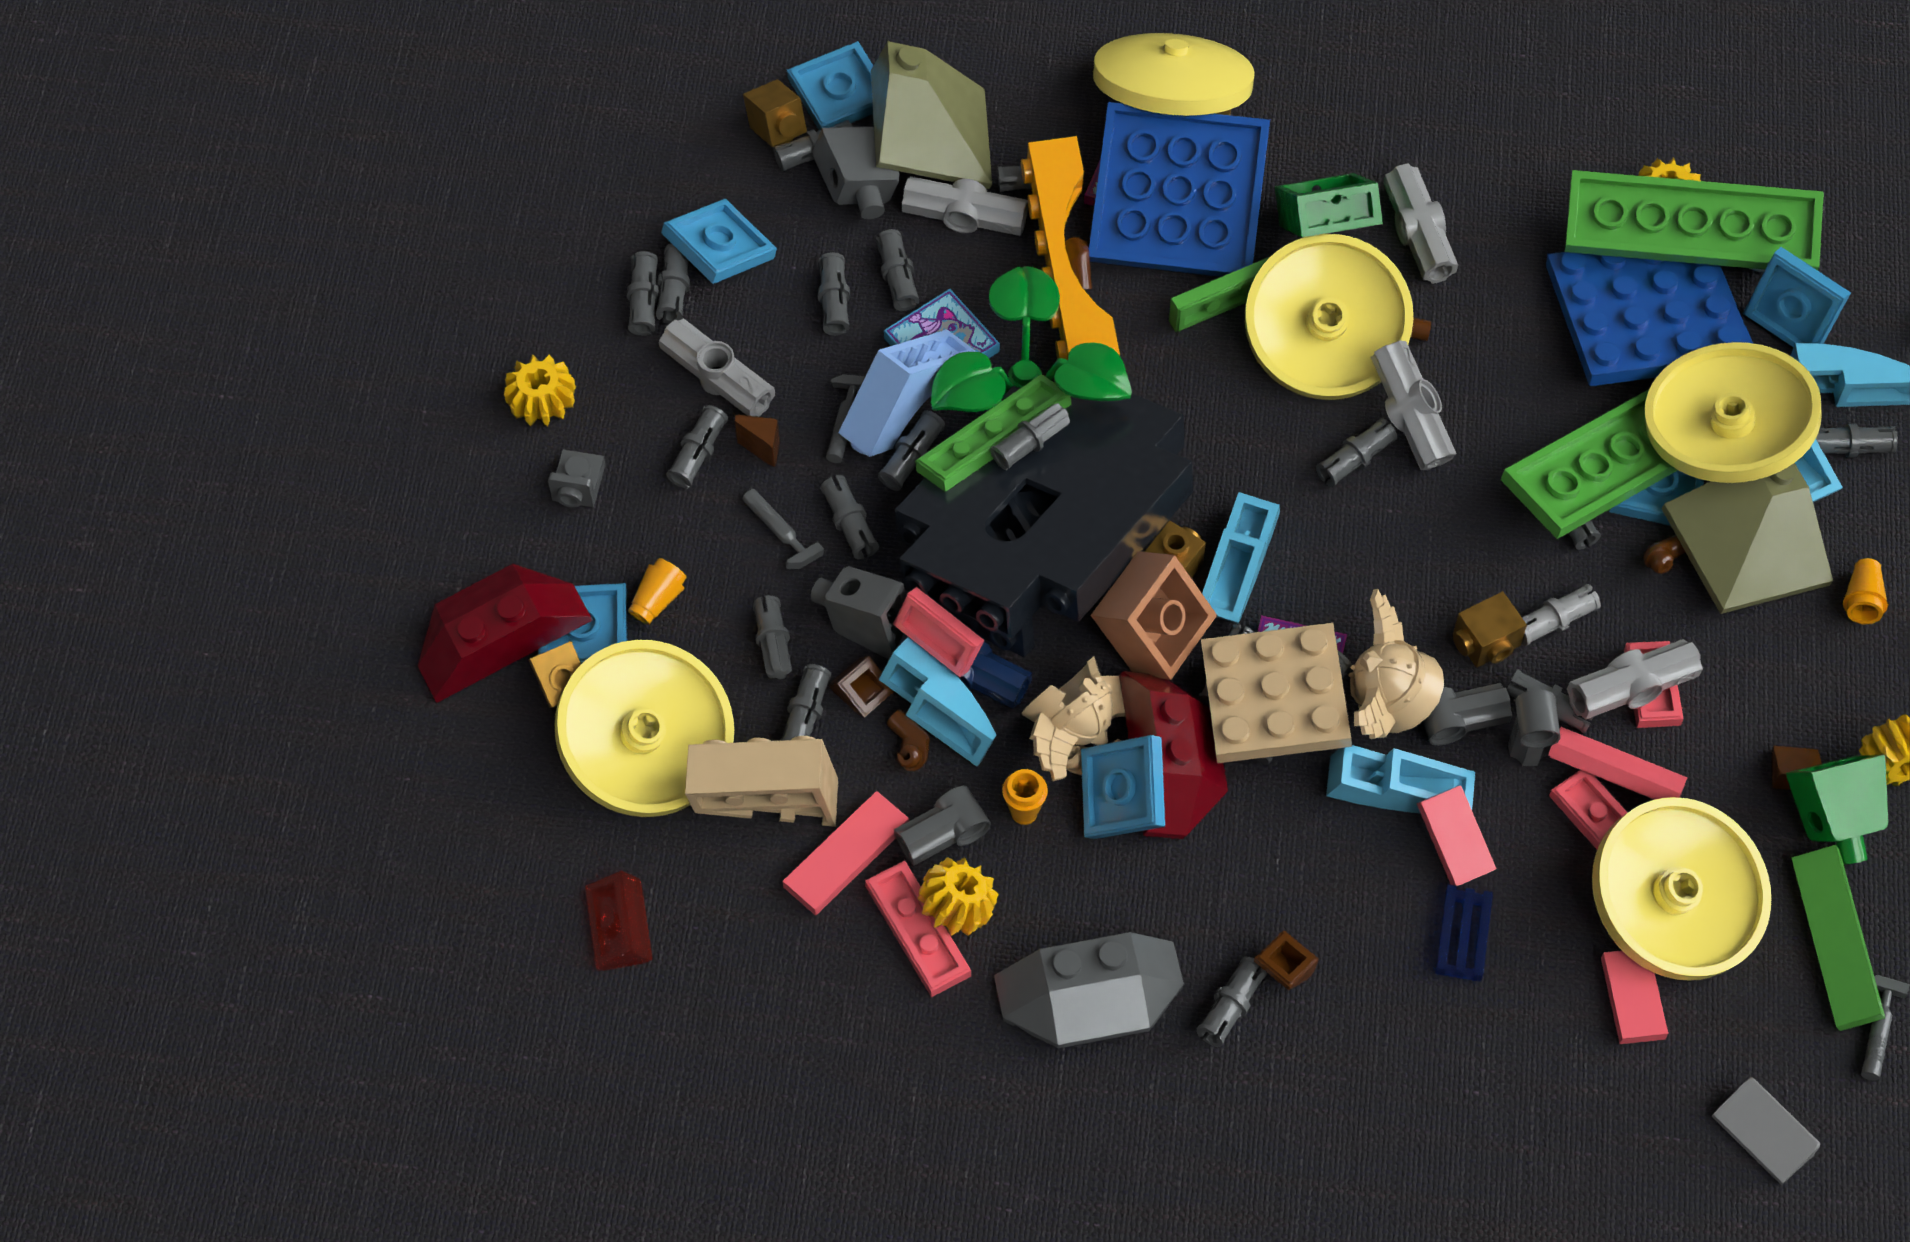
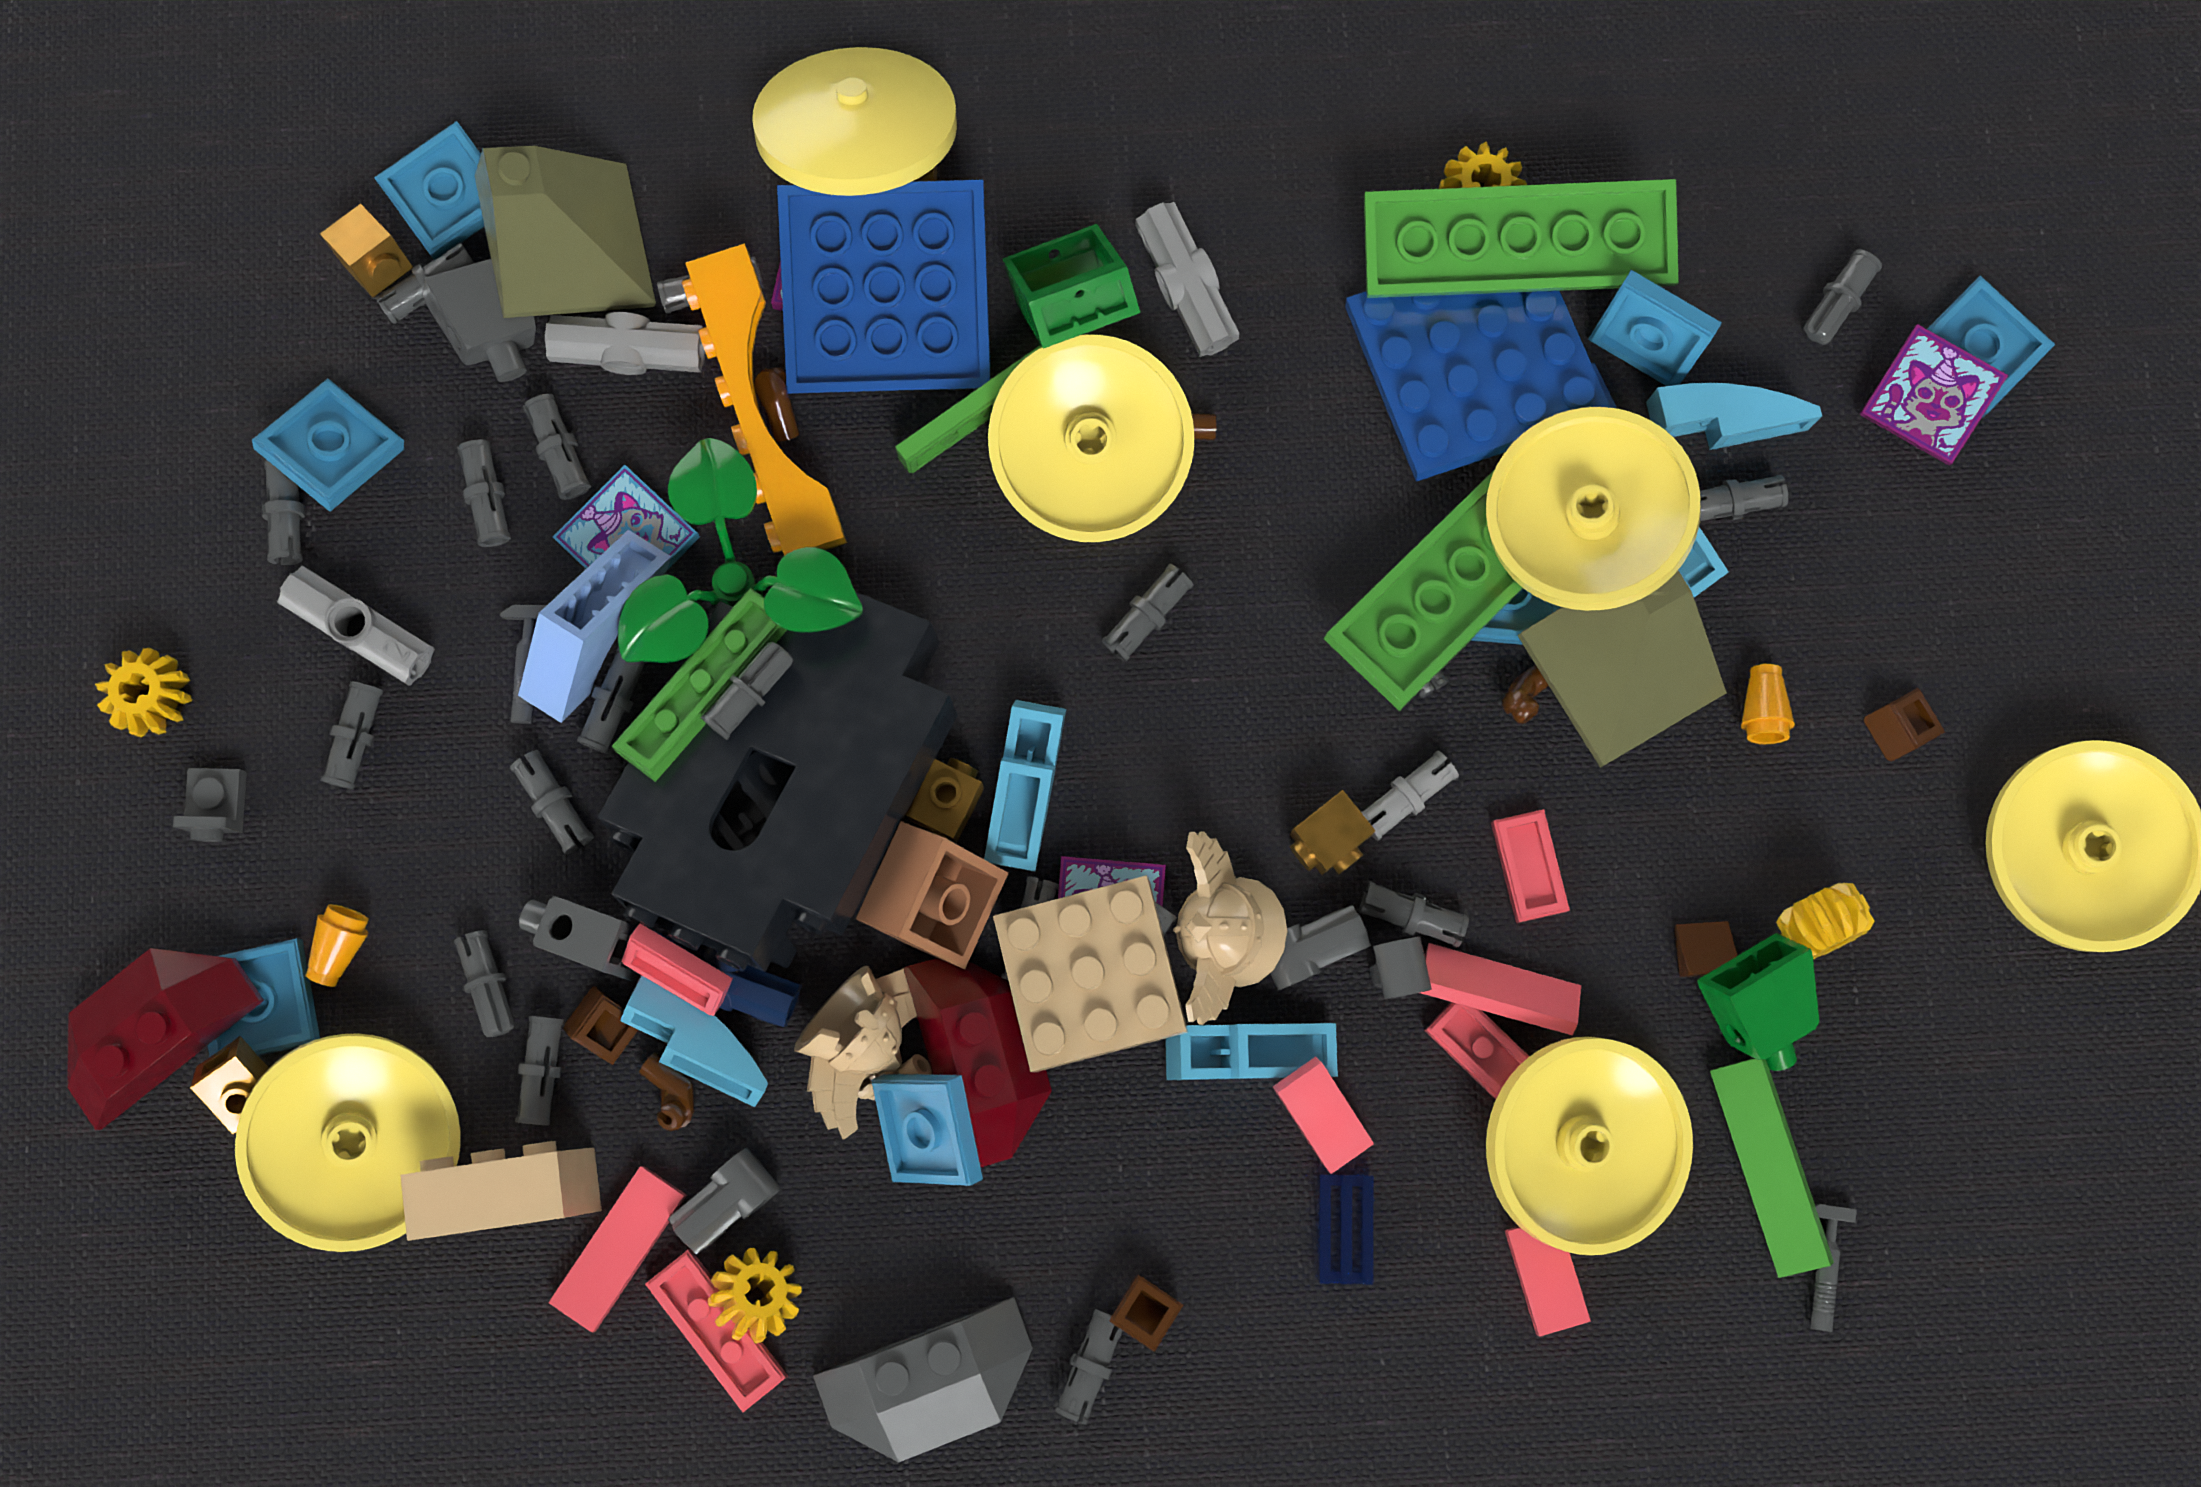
camera: 10 degrees left, 20 degrees up
(618, 921) = (367, 1381): clear red slope -> none
(643, 293) = (248, 532): dark grey pin -> none
(758, 436) = (427, 711): reddish brown slope -> none
(782, 531) = (473, 831): dark grey piece -> none
(1024, 795) = (798, 1159): light orange cone -> none
(1413, 405) = (1207, 546): light grey piece -> none
(1634, 679) = (1509, 881): light grey piece -> none
(1766, 1130) = (1710, 1422): light grey slope -> none

